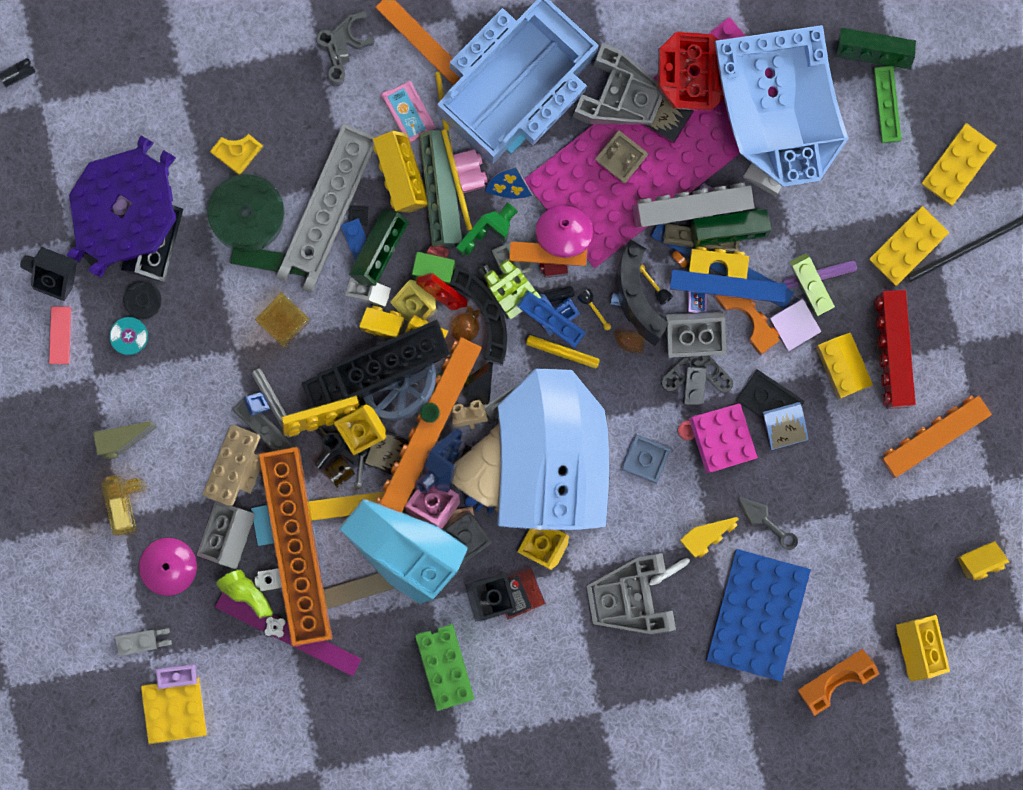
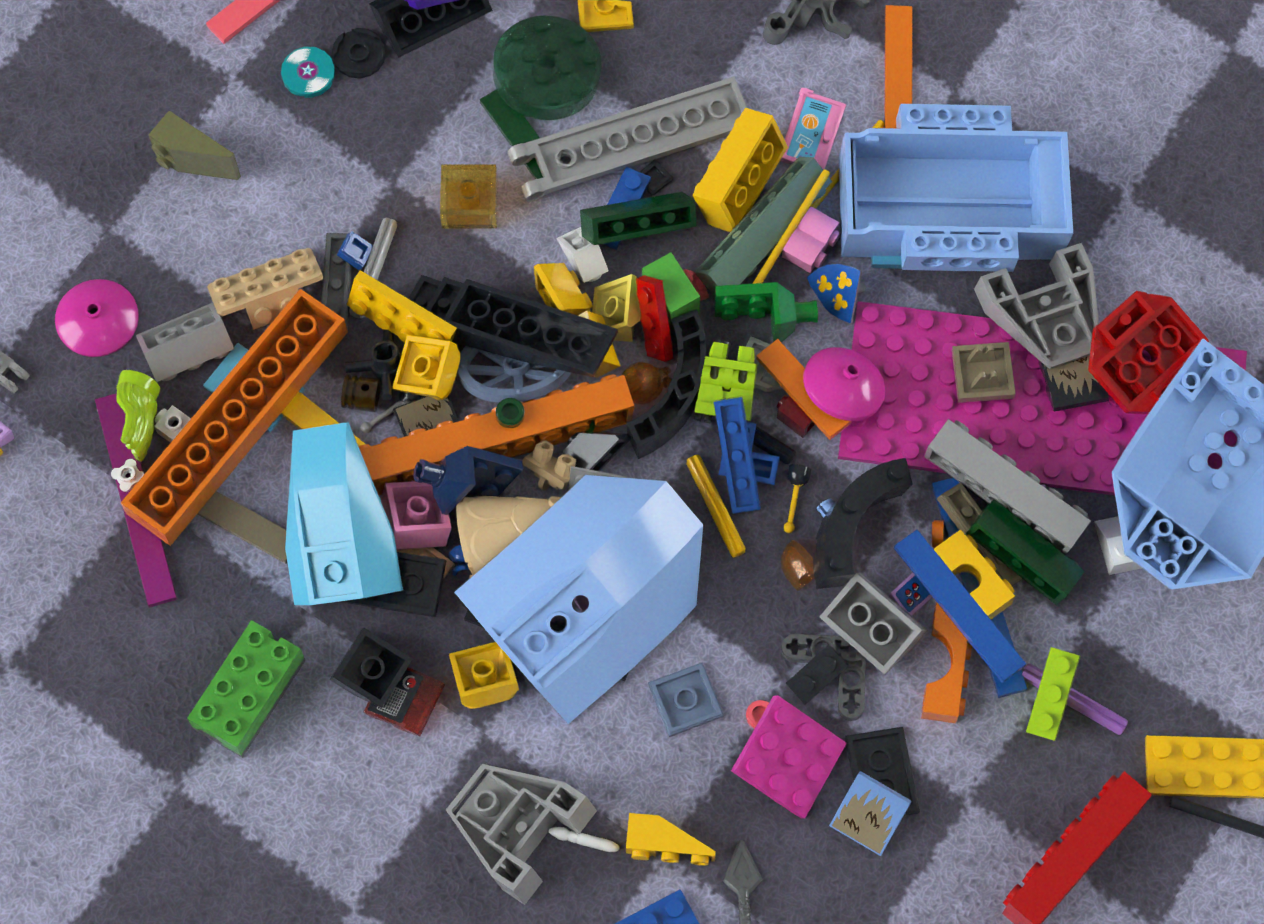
camera: 50 degrees right, 15 degrees down
(118, 503) = (118, 207): clear yellow brick -> none
(663, 294) = (881, 550): hinge -> none
(795, 324) = (992, 721): lavender tile -> none
(844, 365) = (1003, 817): yellow slope -> none

